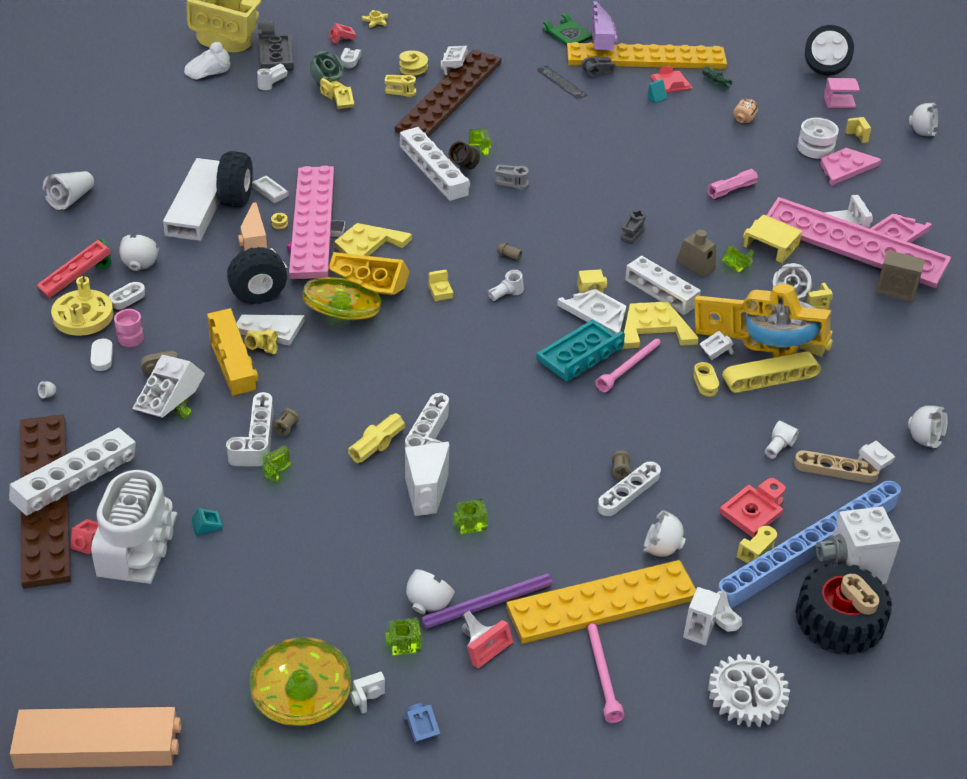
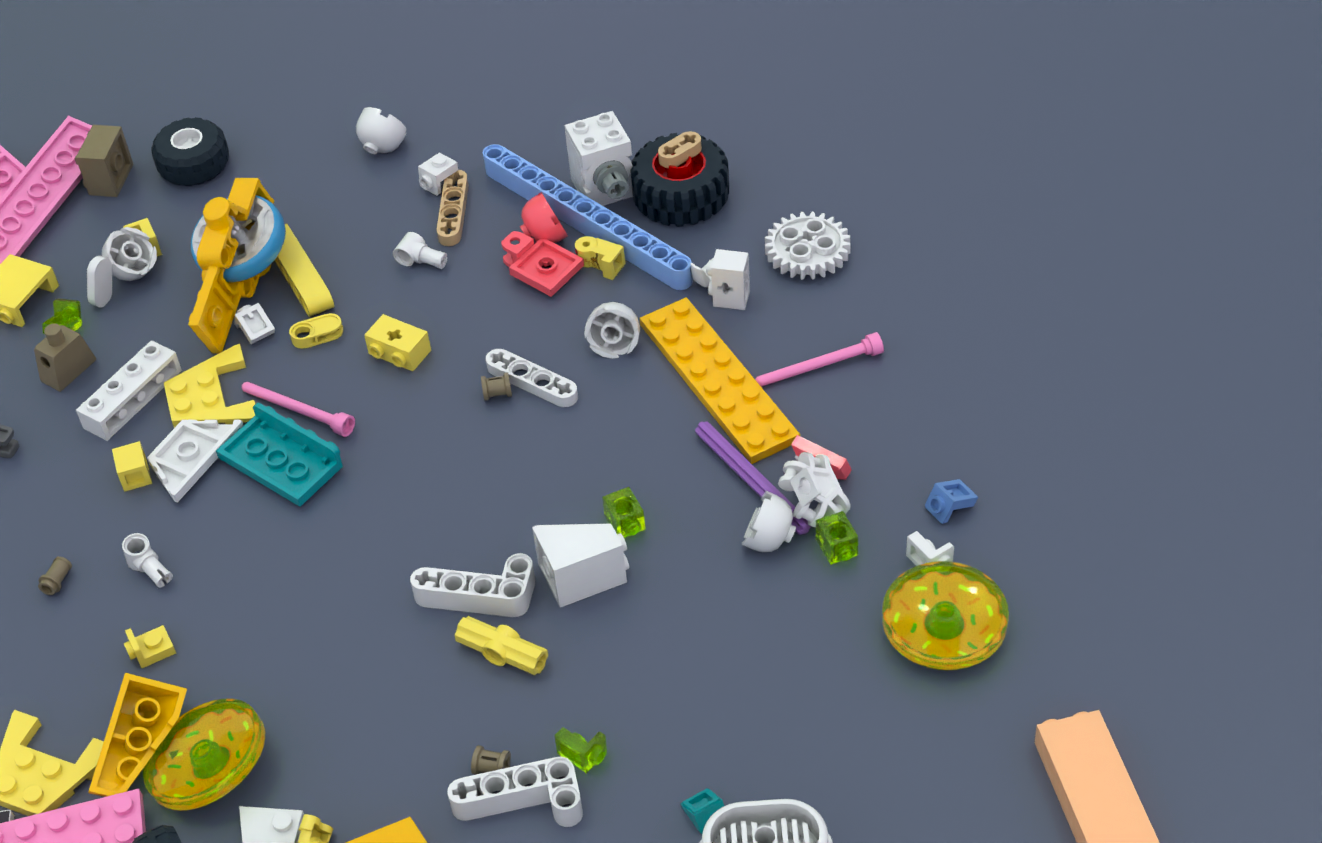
camera: 95 degrees left, 5 degrees up
(444, 620) = (819, 485): none -> white piece
(679, 416) = (397, 342): none -> light yellow brick
(765, 271) = (99, 281): none -> white tile
(801, 510) = (541, 221): none -> coral cylinder
(912, 322) = (190, 151): none -> black wheel

